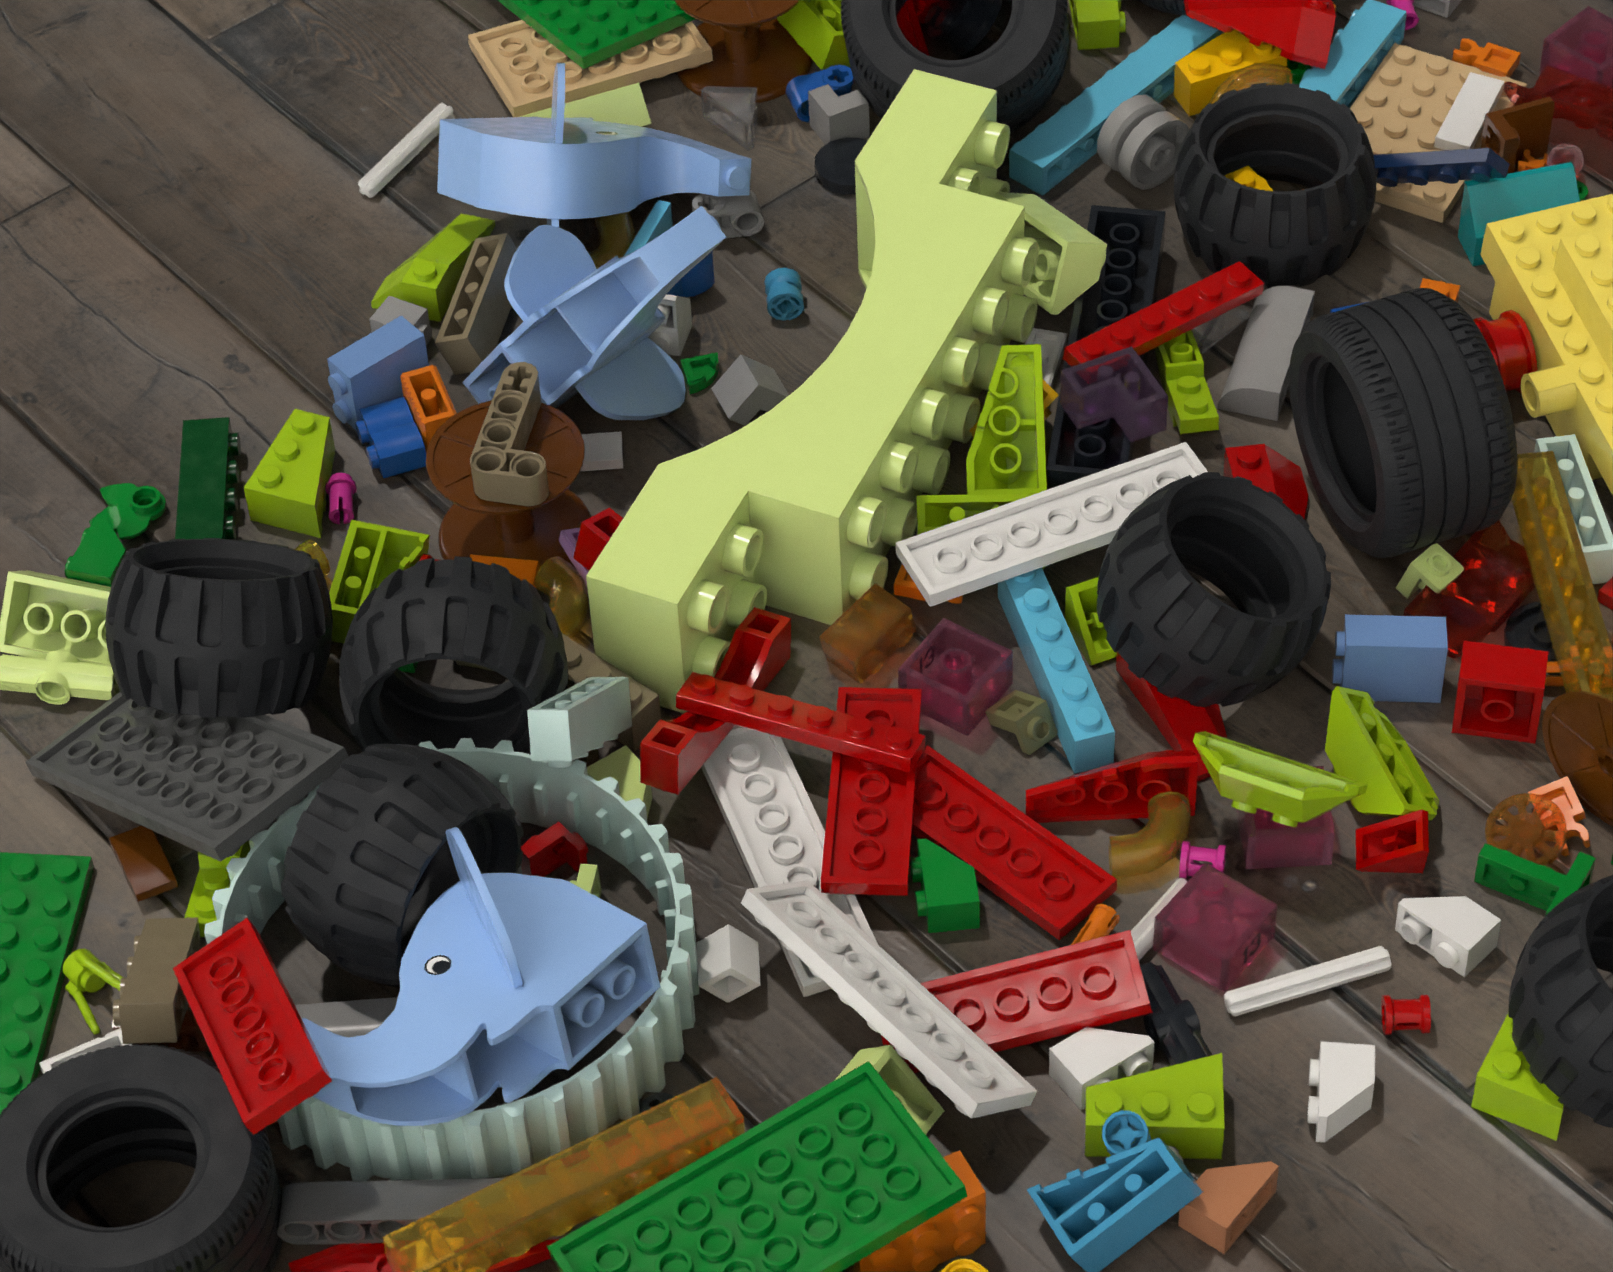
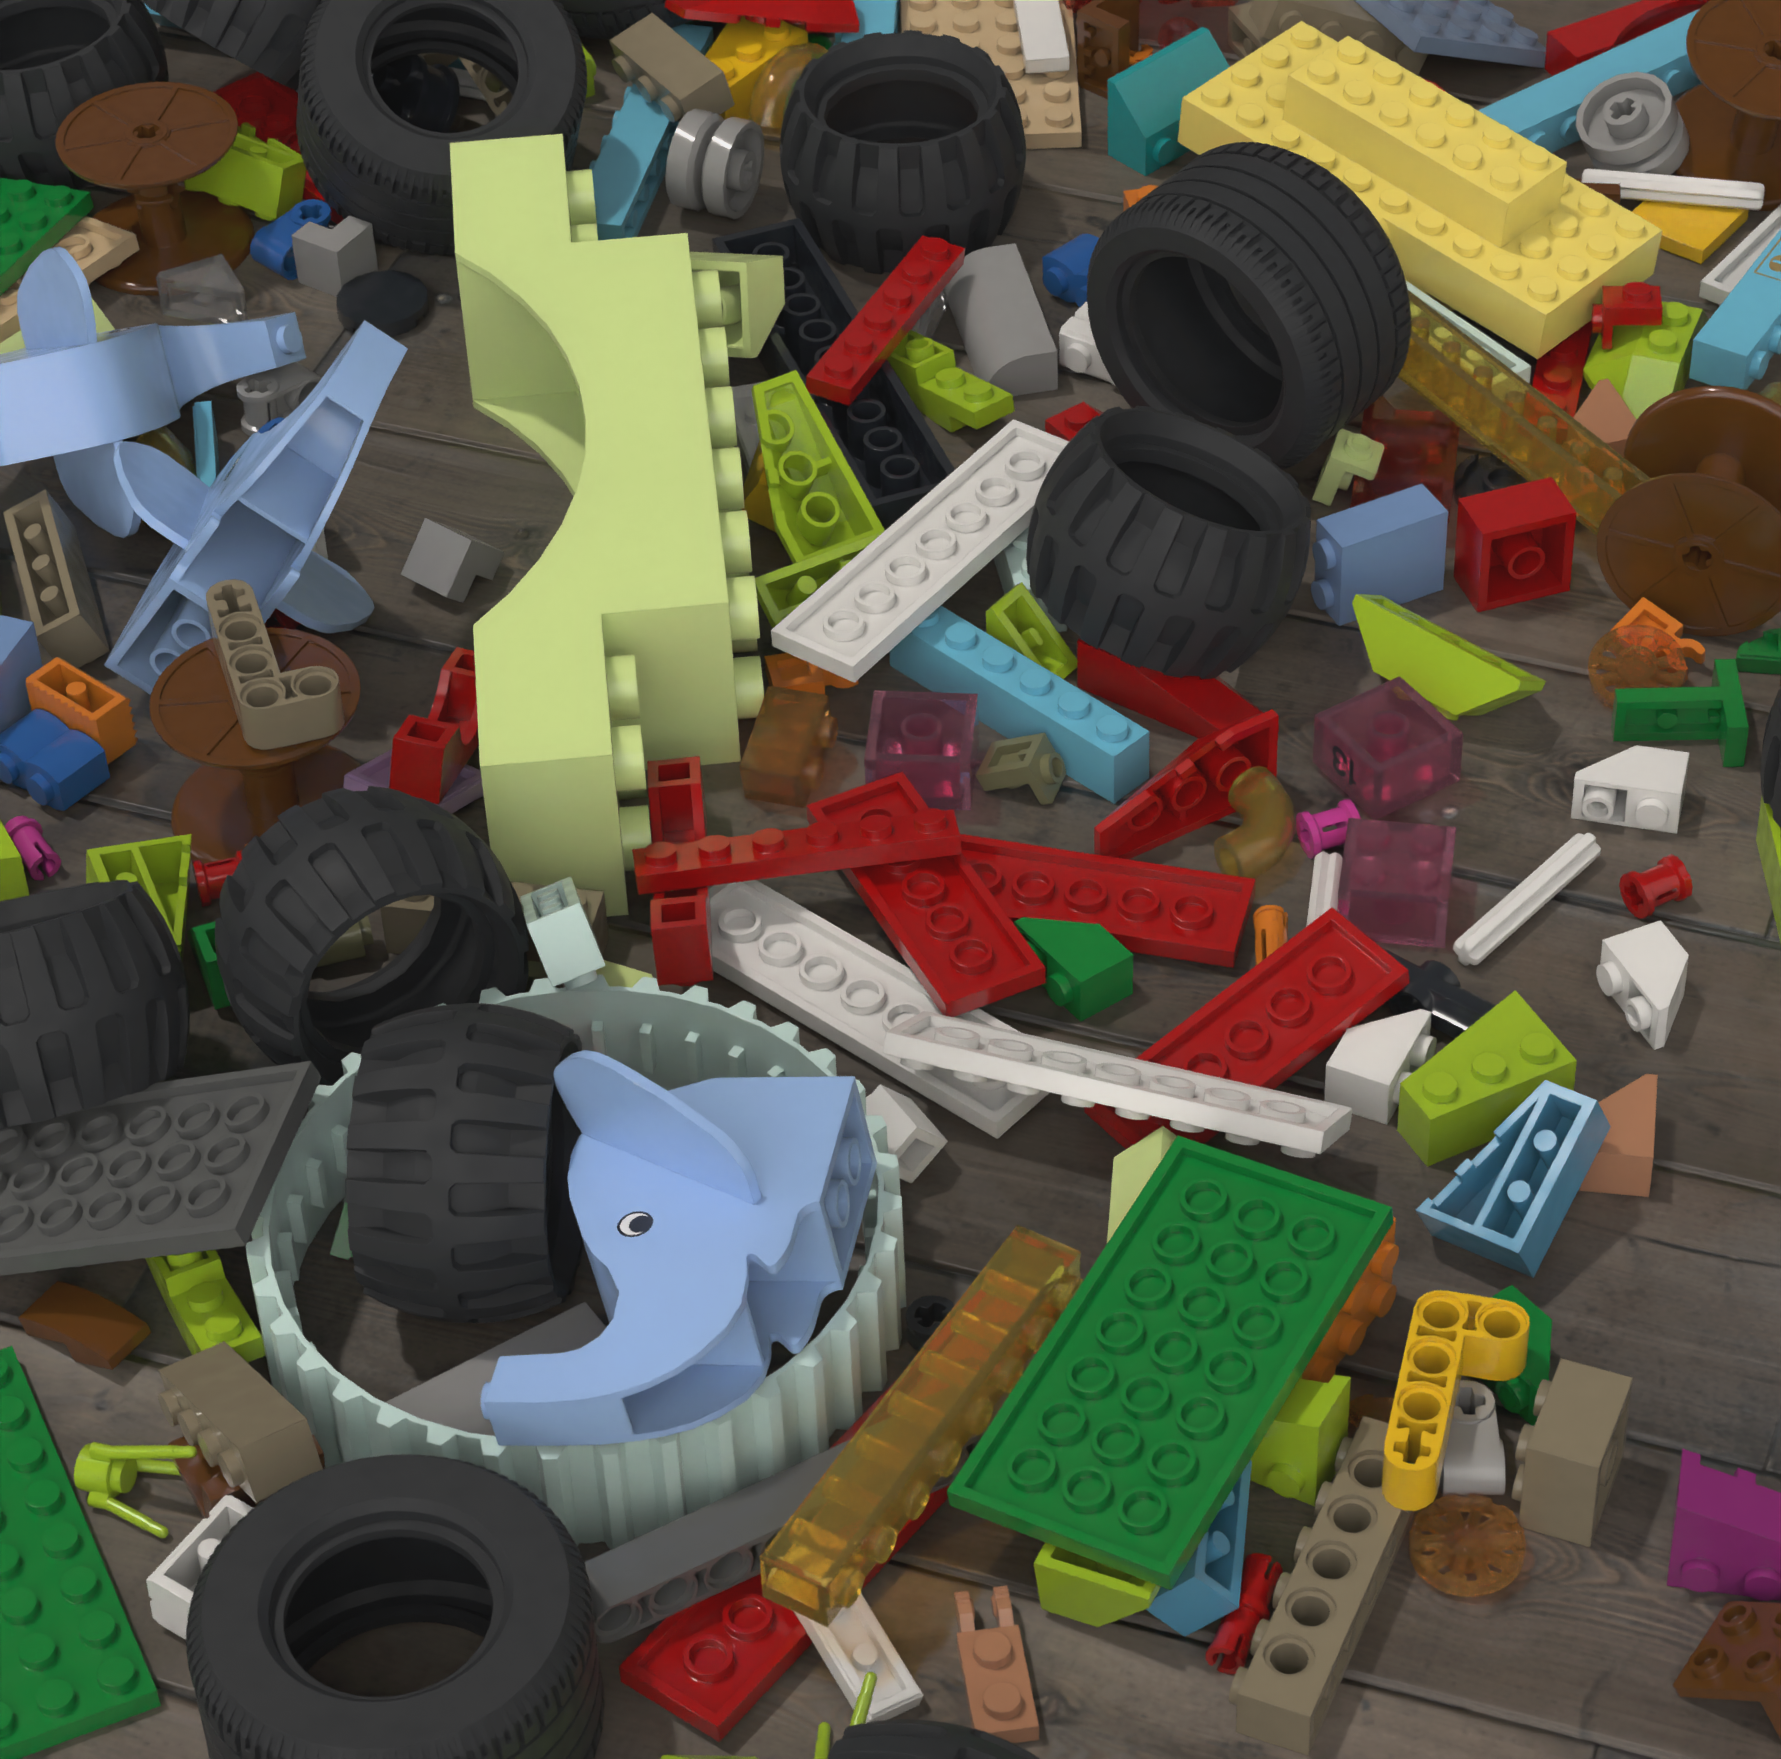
camera: 30 degrees left, 5 degrees down
(251, 1026) = (447, 1388): red plate -> none
(700, 371) = (368, 565): green tile -> none
(784, 294) = (412, 451): dark azure wheel -> none
(1117, 388) = (904, 392): clear purple brick -> none
(1124, 1128) = (1499, 1097): dark azure wheel -> none
(1154, 55) = (669, 70): none -> dark tan brick
(1273, 782) = (1377, 700): lime wedge -> none
(1394, 844) = (1521, 728): red slope -> none
(1442, 166) = (1081, 69): dark blue plate -> none

